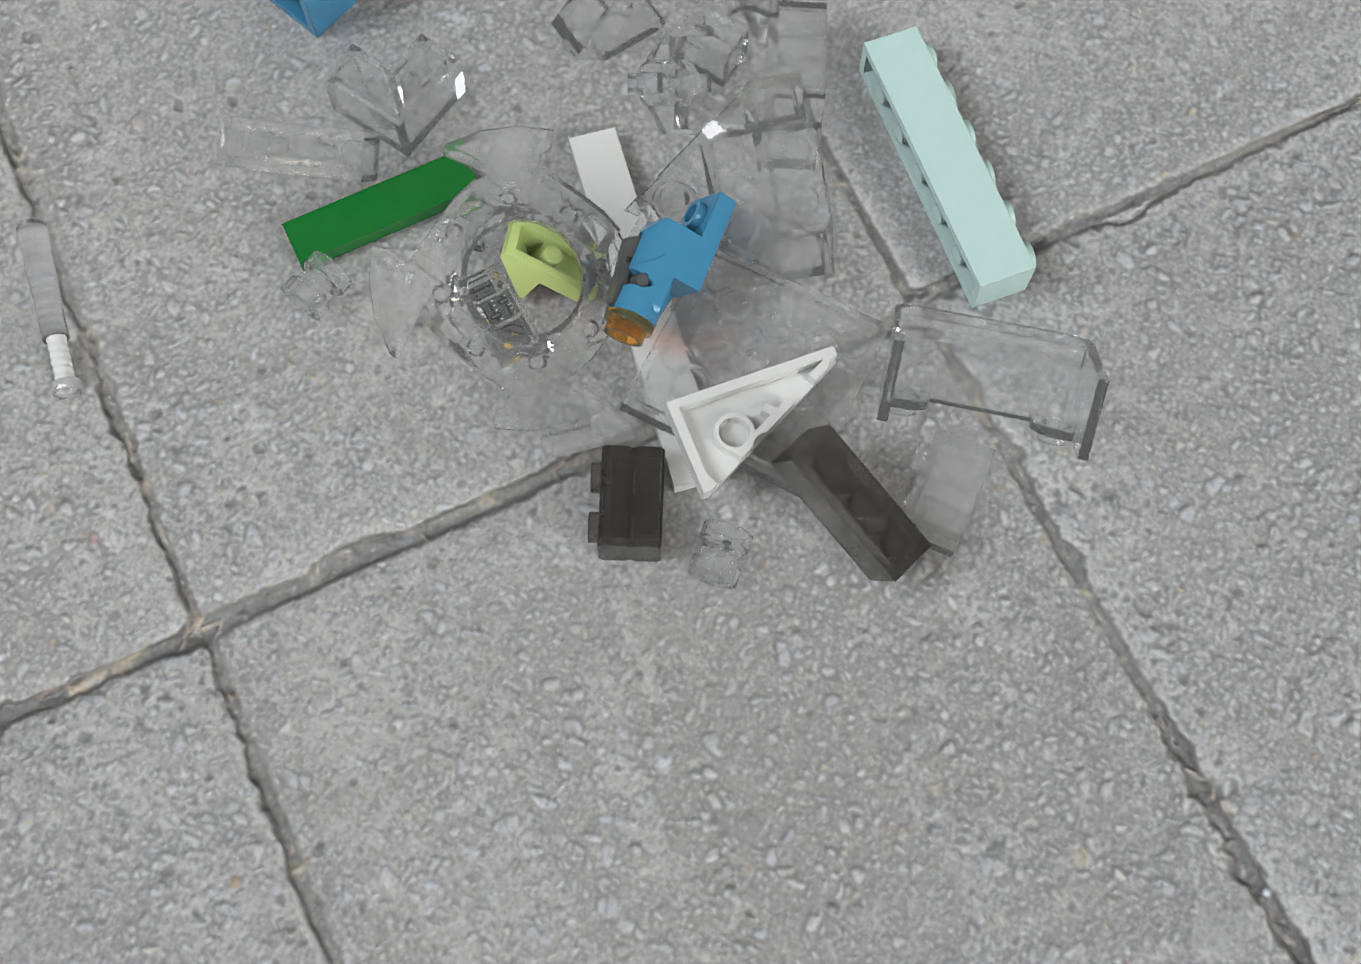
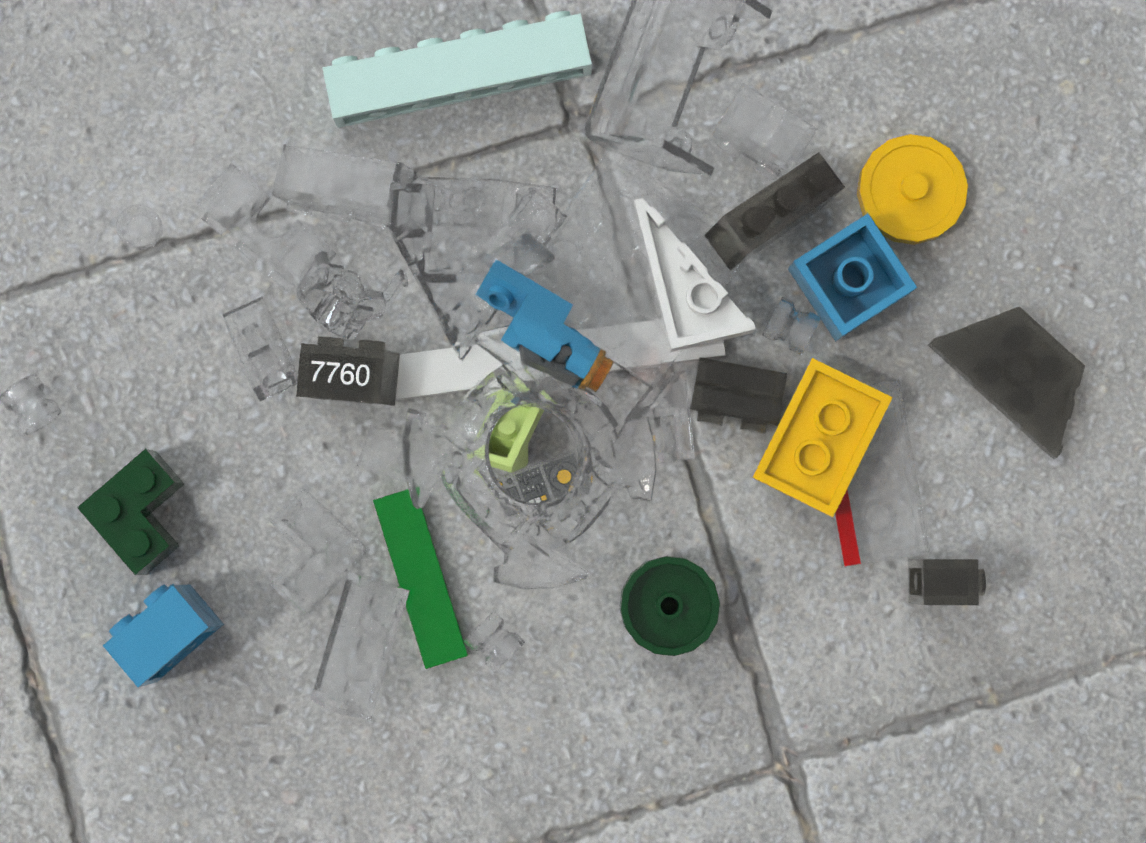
camera: 80 degrees left, 15 degrees up
(370, 455) = (696, 602): none -> dark green wheel
(428, 767) = (945, 581): none -> clear smoke brick
(557, 675) = (883, 505): none -> clear tile
(589, 602) = (822, 437): none -> yellow plate
(592, 99) = (348, 373): none -> clear smoke brick
(706, 838) = (1018, 372): none -> clear smoke wing
(788, 609) = (851, 277): none -> dark azure brick
(912, 678) = (912, 189): none -> yellow wheel

